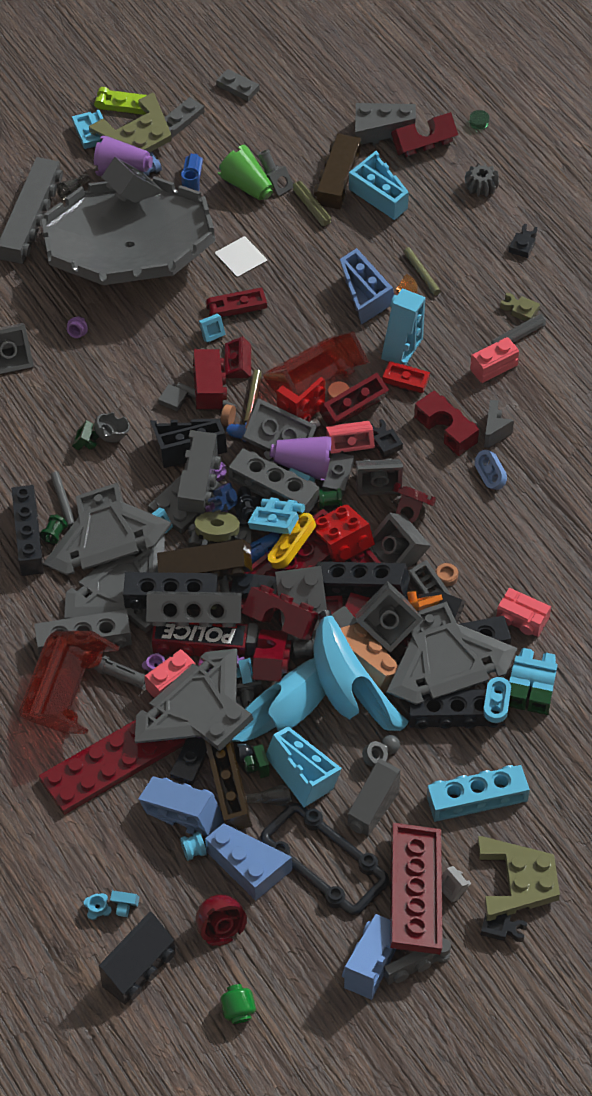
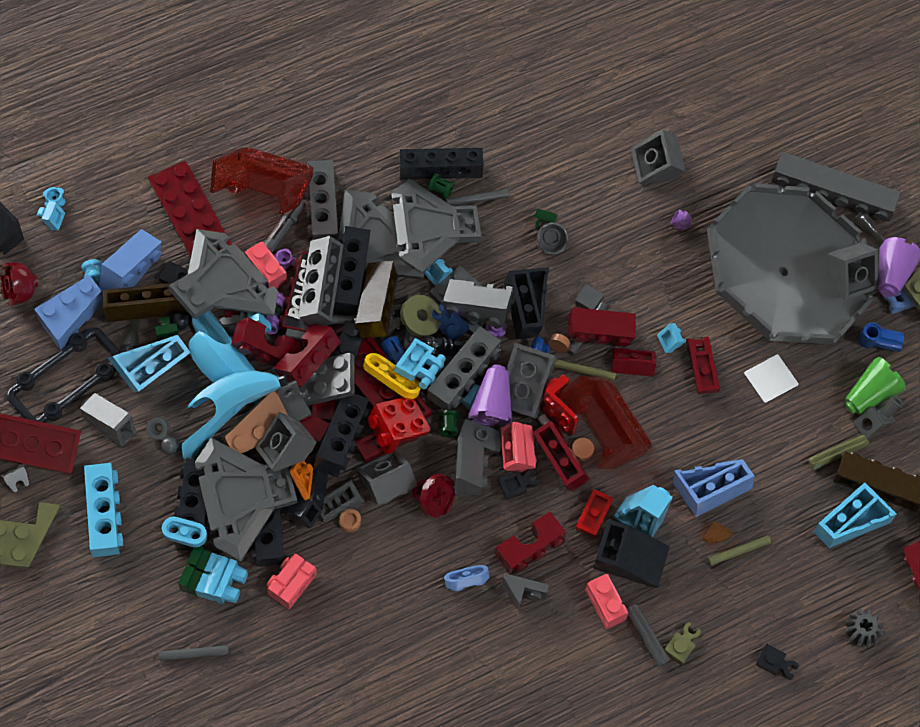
camera: 90 degrees right, 10 degrees up
(443, 348) = (631, 554): none -> black slope

